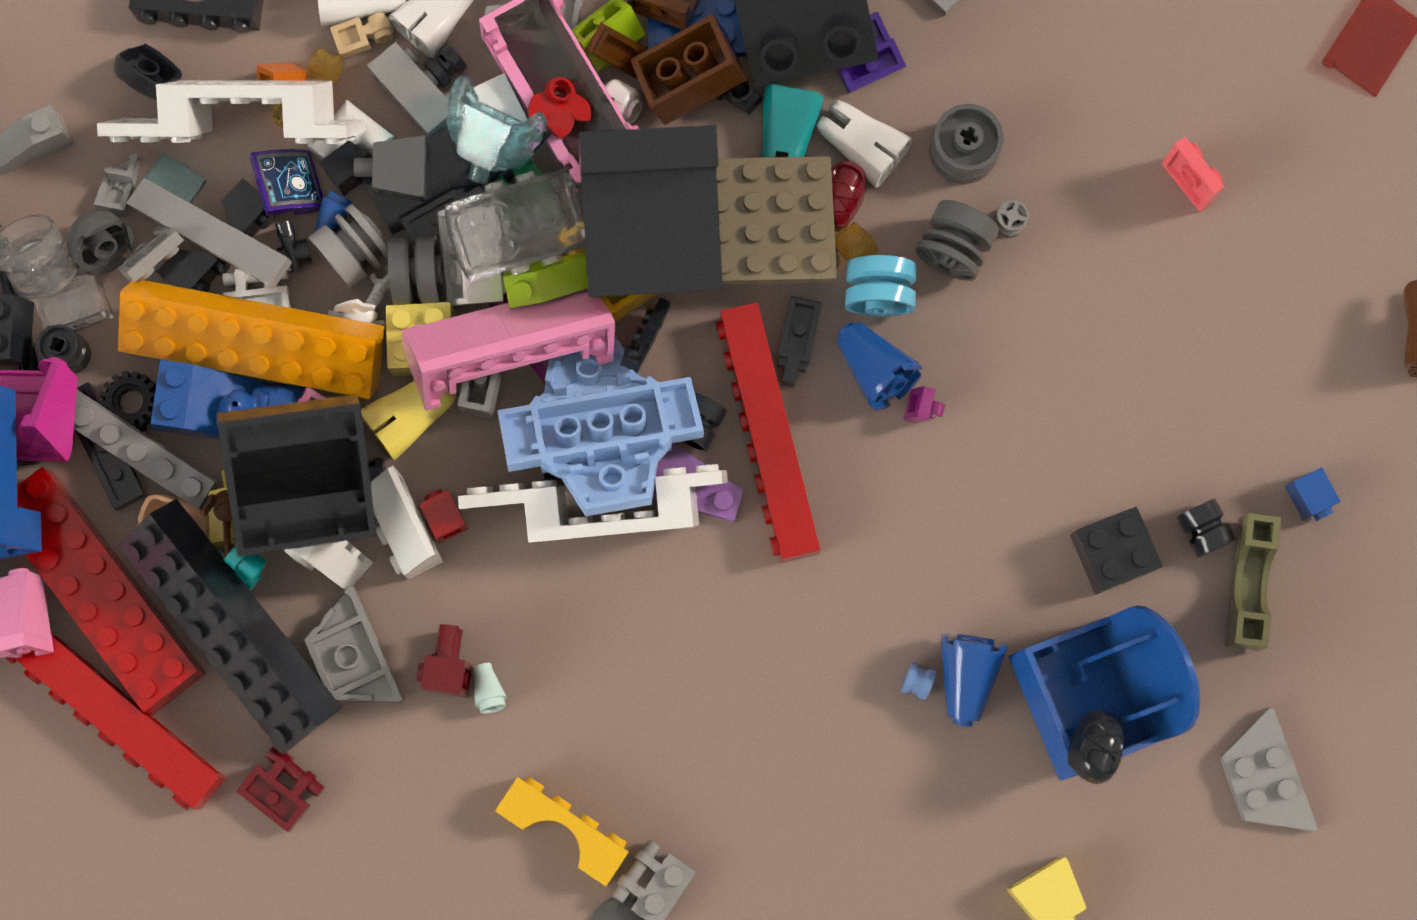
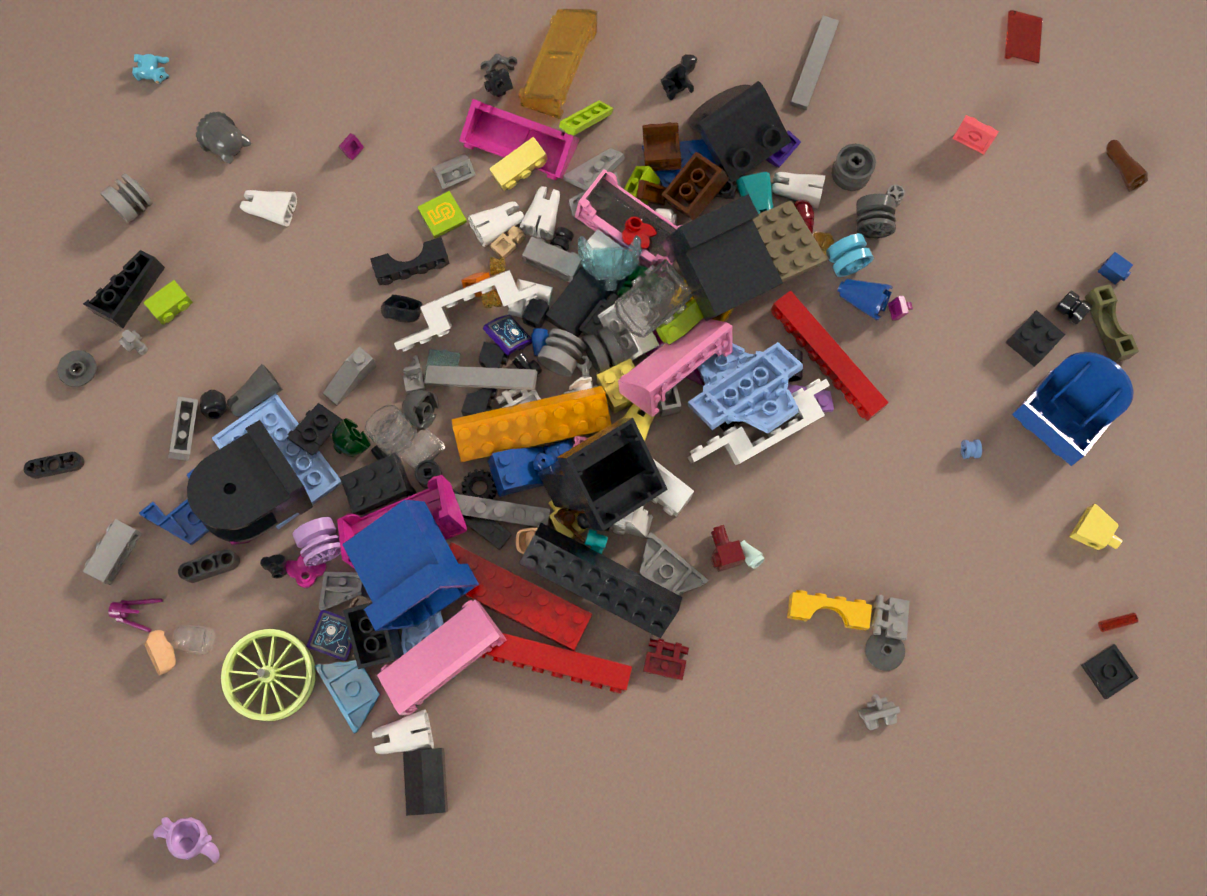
camera: 30 degrees left, 5 degrees down
(145, 257) = (457, 396): light grey wing -> none
(397, 167) = (567, 300): dark grey torso -> none
(443, 515) = (681, 470): red brick -> none
(643, 339) = (742, 331): black hinge -> none
(797, 337) = (818, 301): black hinge -> none
(969, 675) = (996, 433): blue cone -> none
(1097, 747) = (1087, 436): black piece -> none
(1266, 778) = (1167, 420): light grey wing -> none

